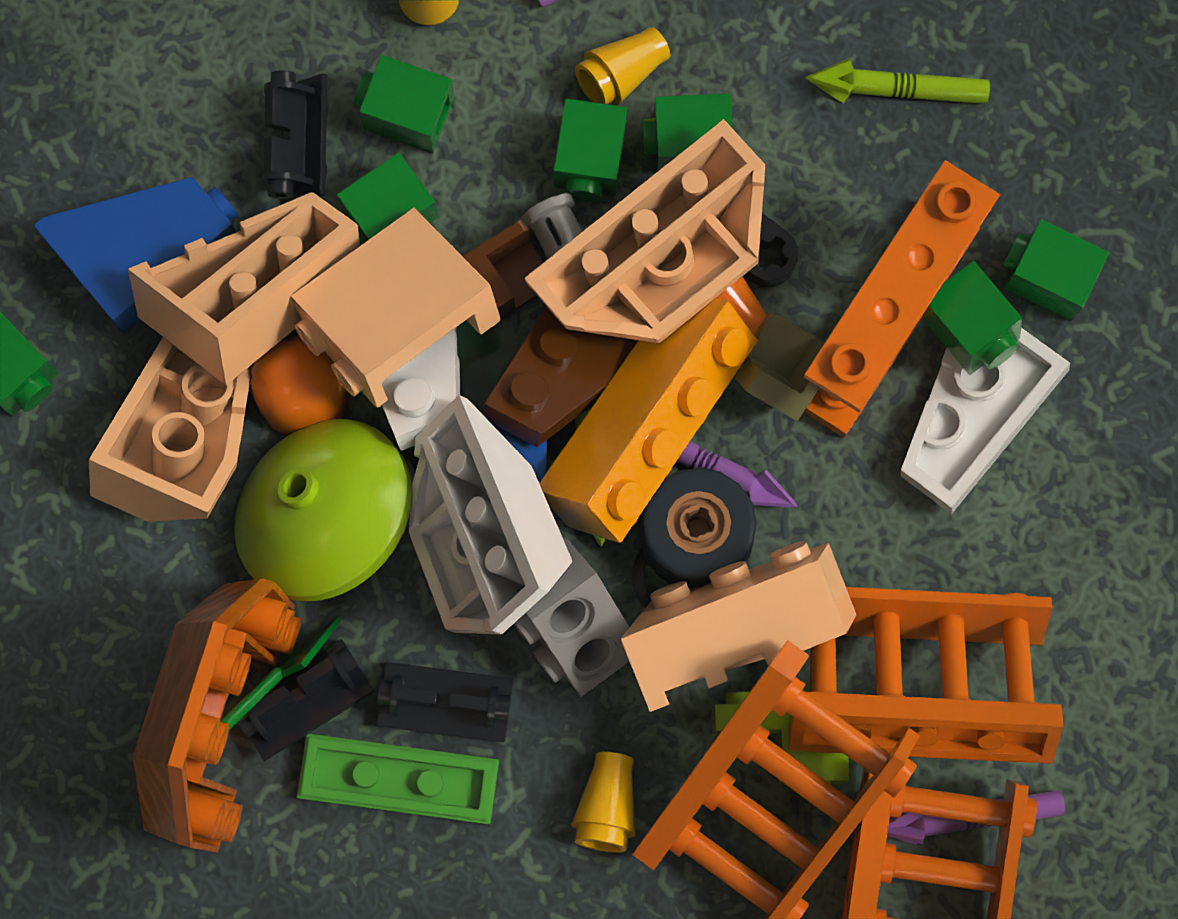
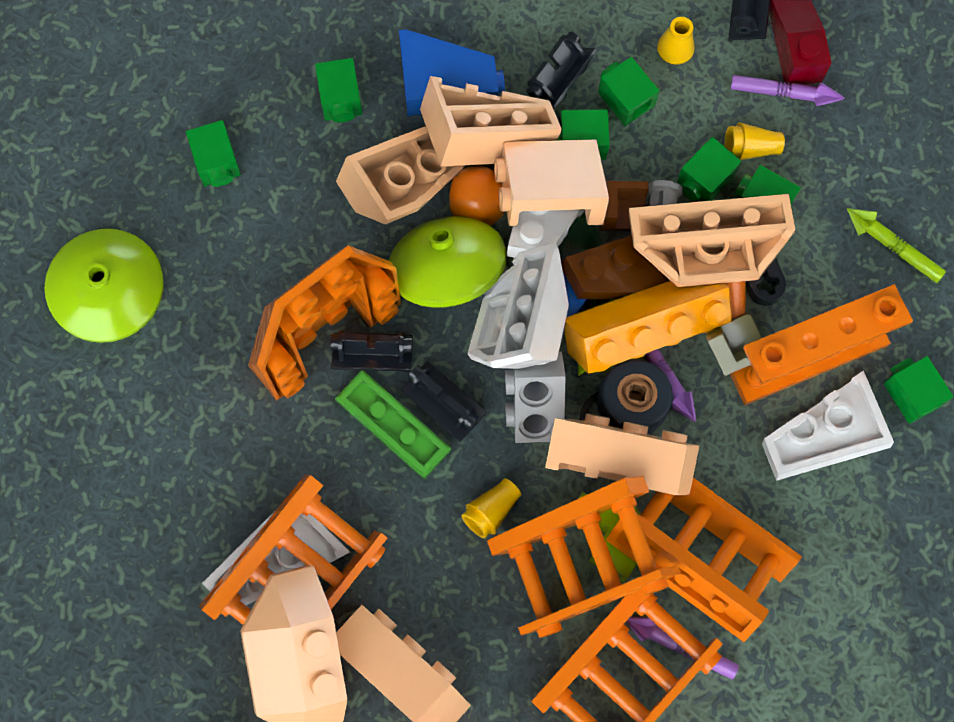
camera: 35 degrees right, 5 degrees down
(294, 663) = (350, 329): green piece -> none
(974, 320) = (855, 384): green brick -> none

